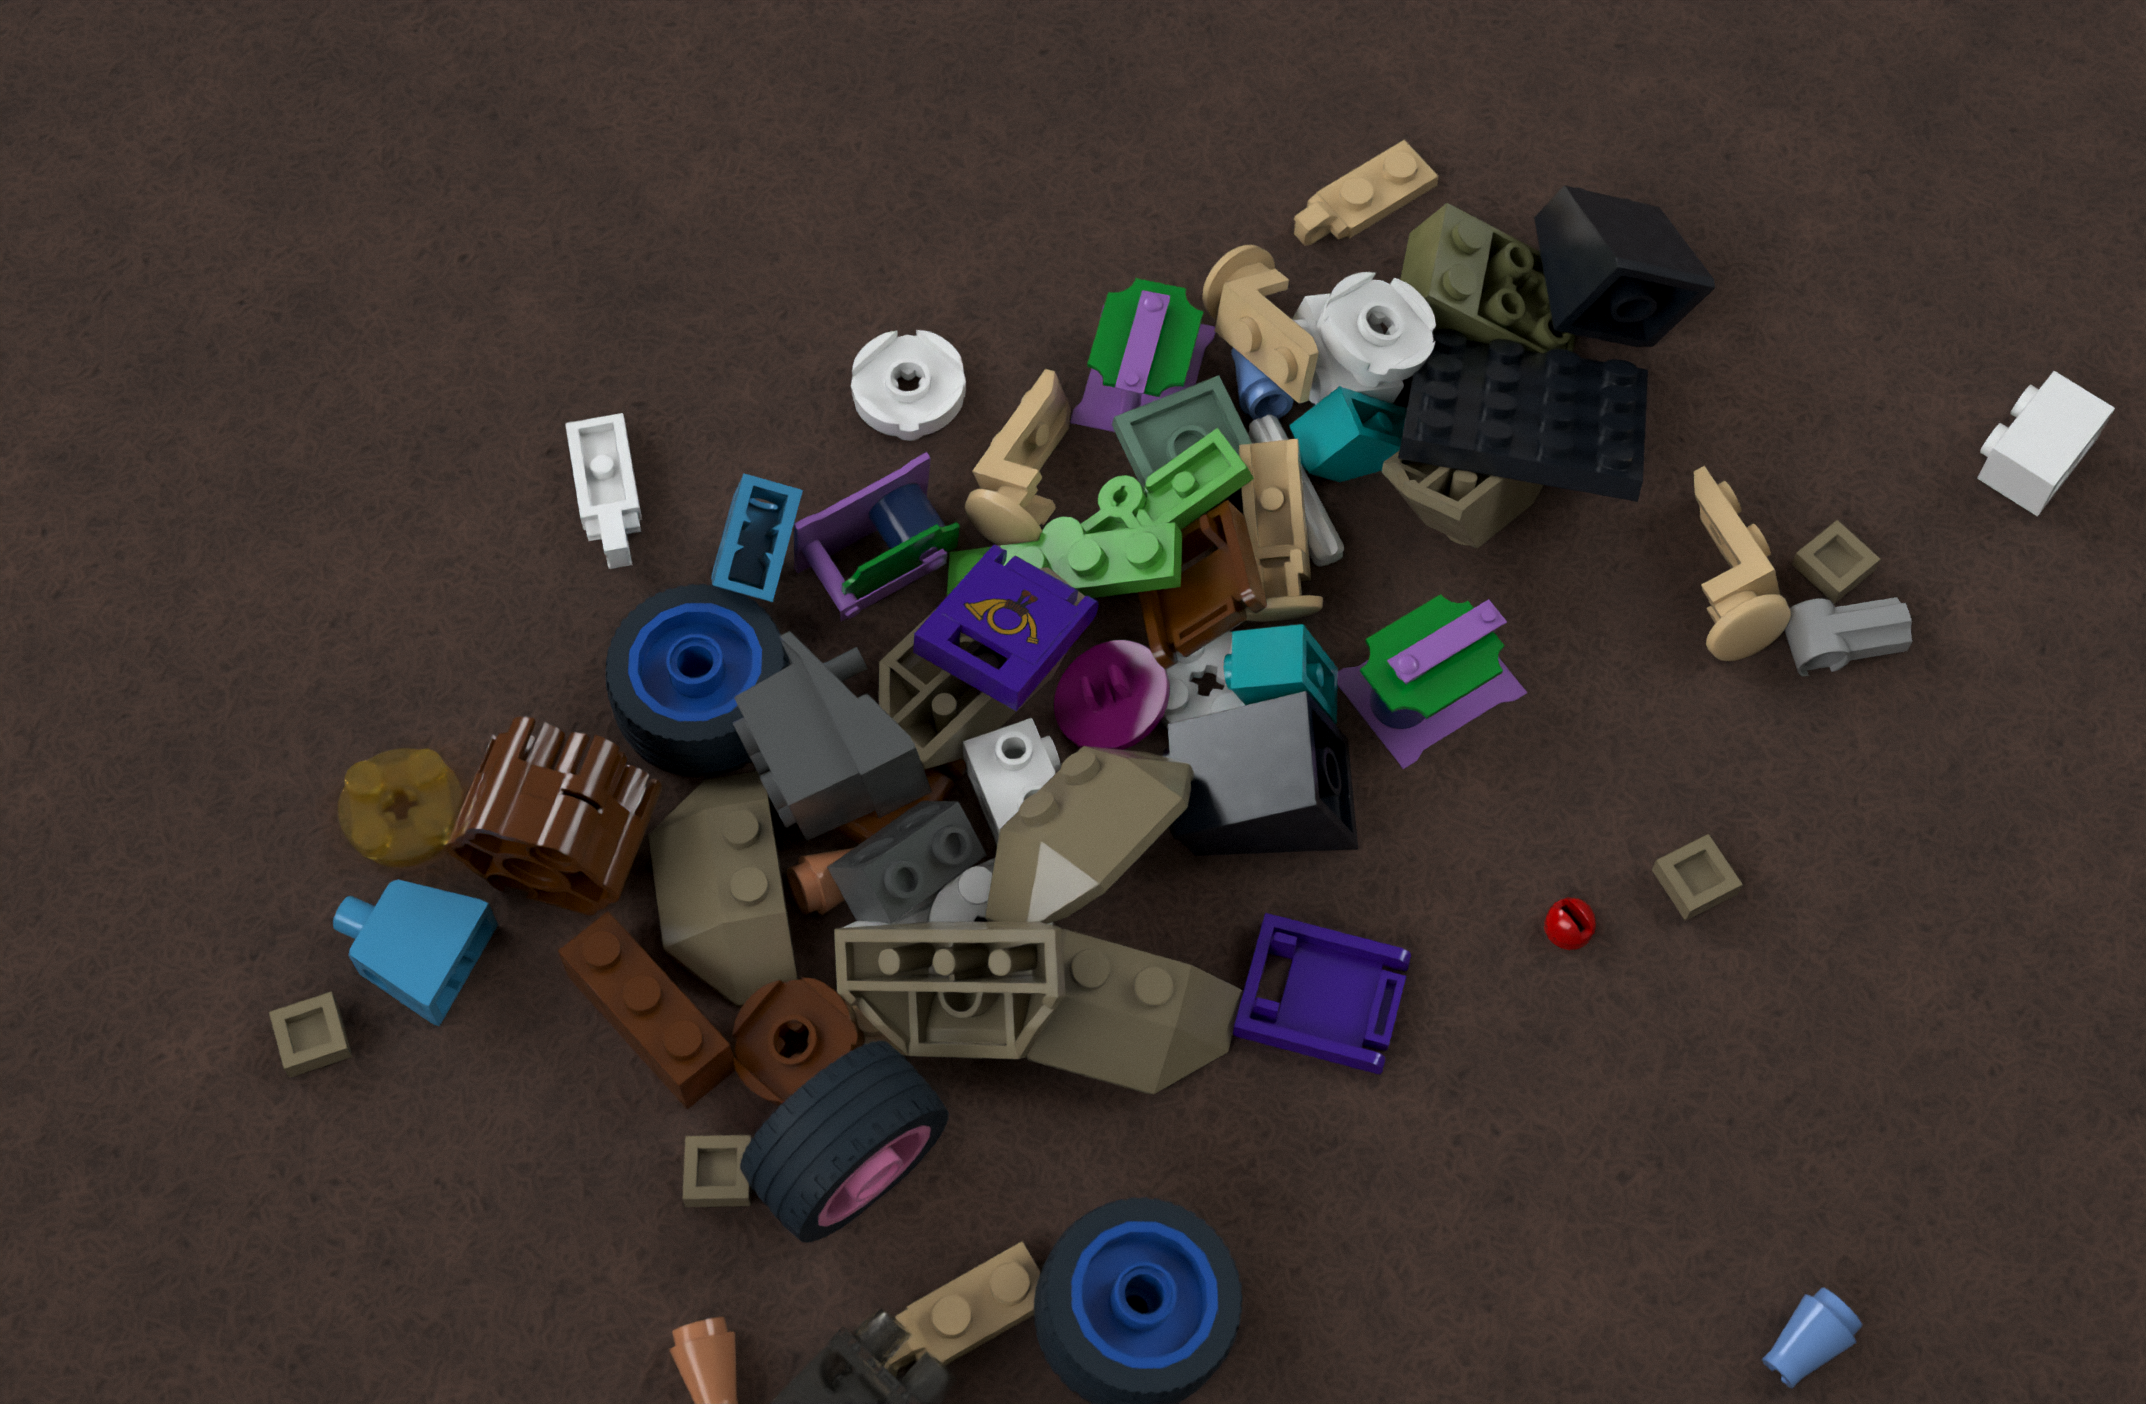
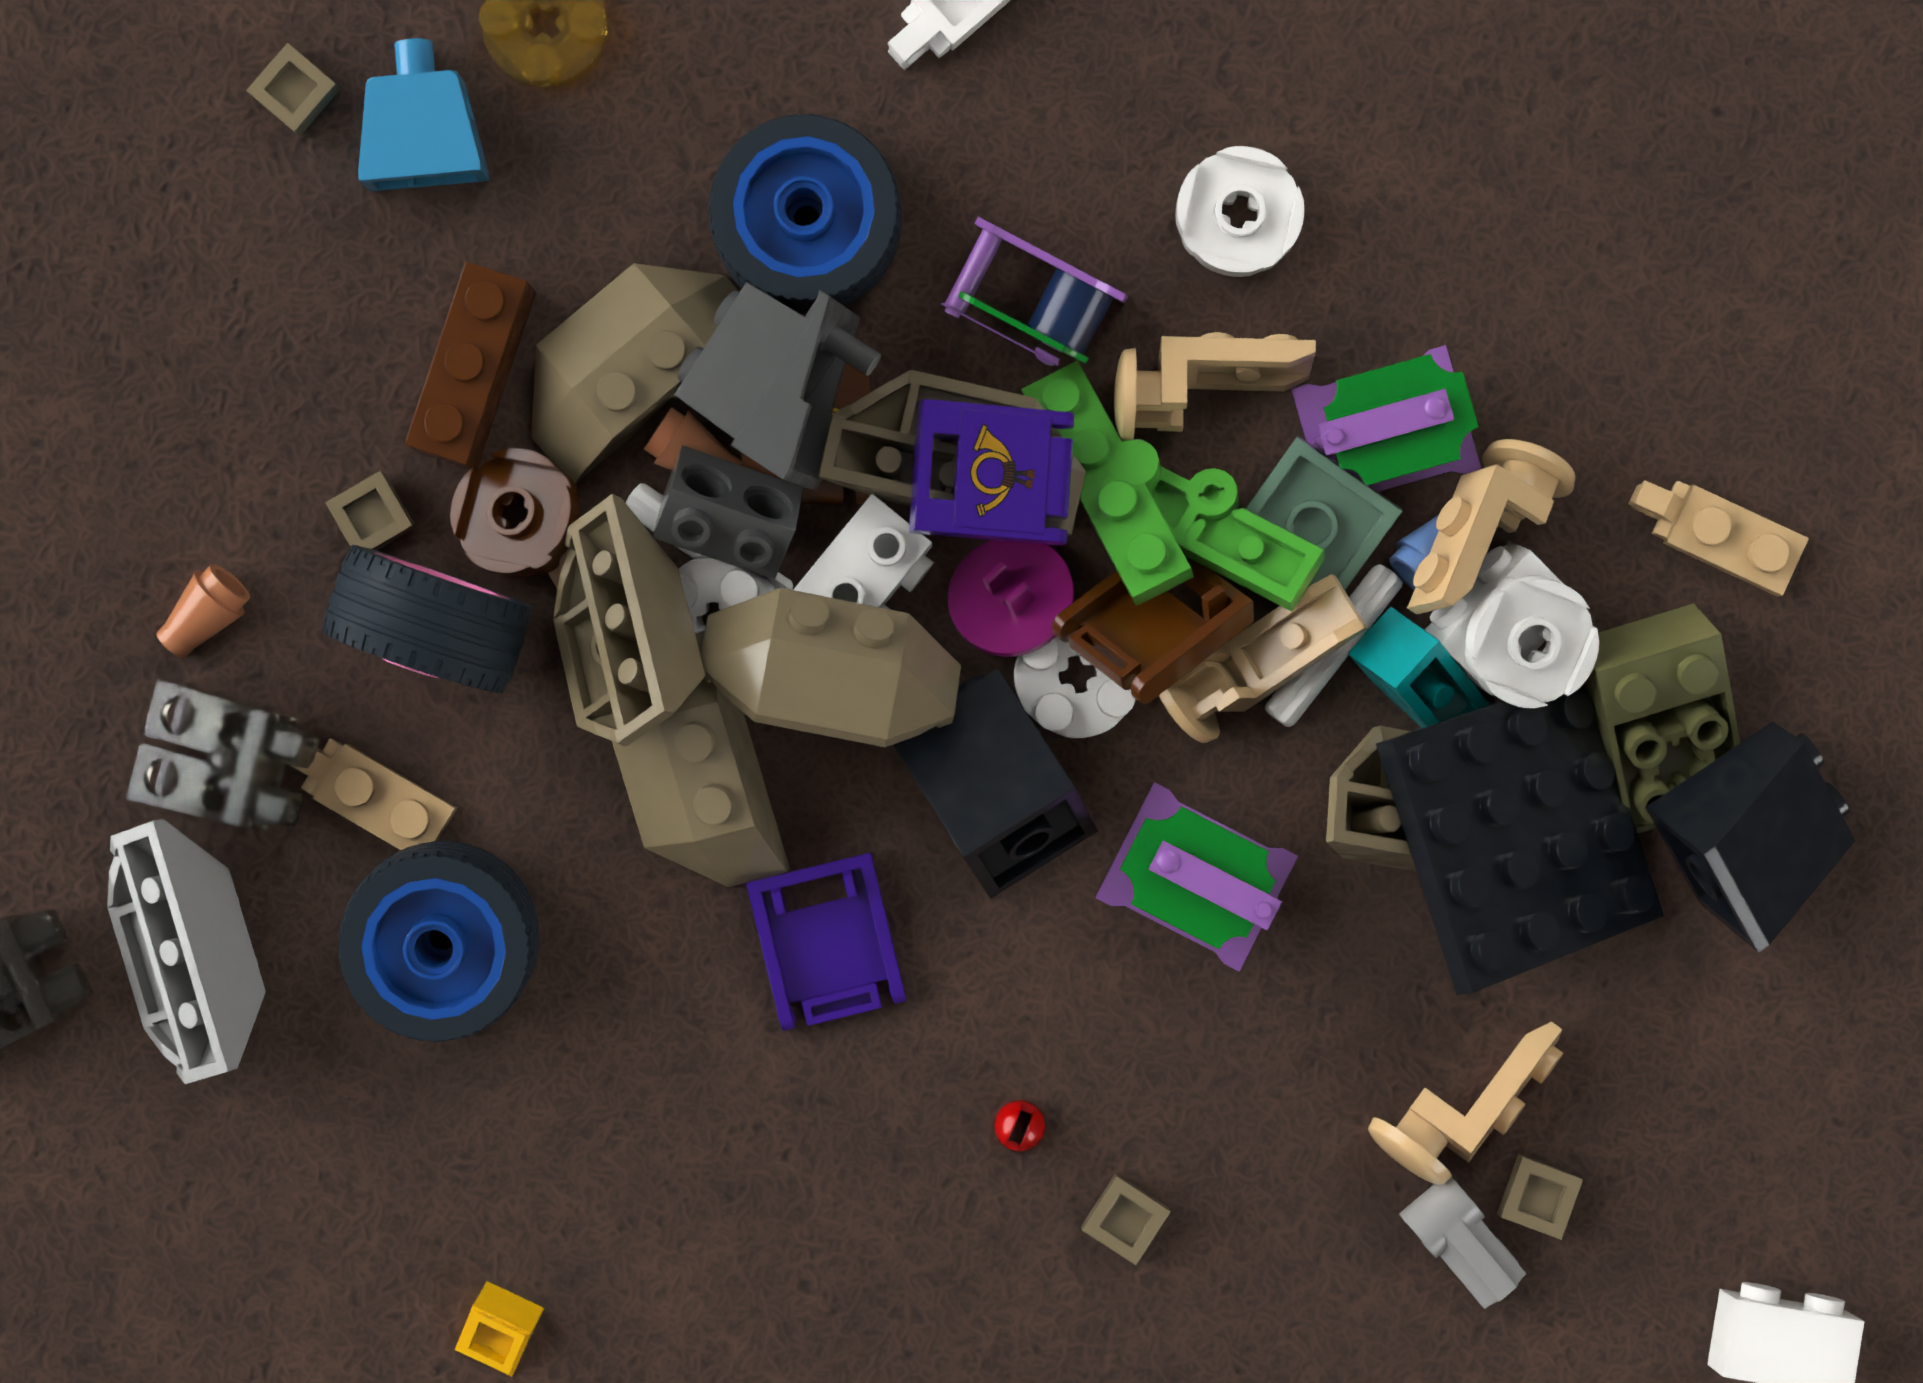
camera: 60 degrees right, 25 degrees up
(550, 829) = (569, 183): reddish brown piece -> none
(756, 537) = (959, 184): dark azure torso -> none
(1281, 663) = (1105, 747): teal slope -> none

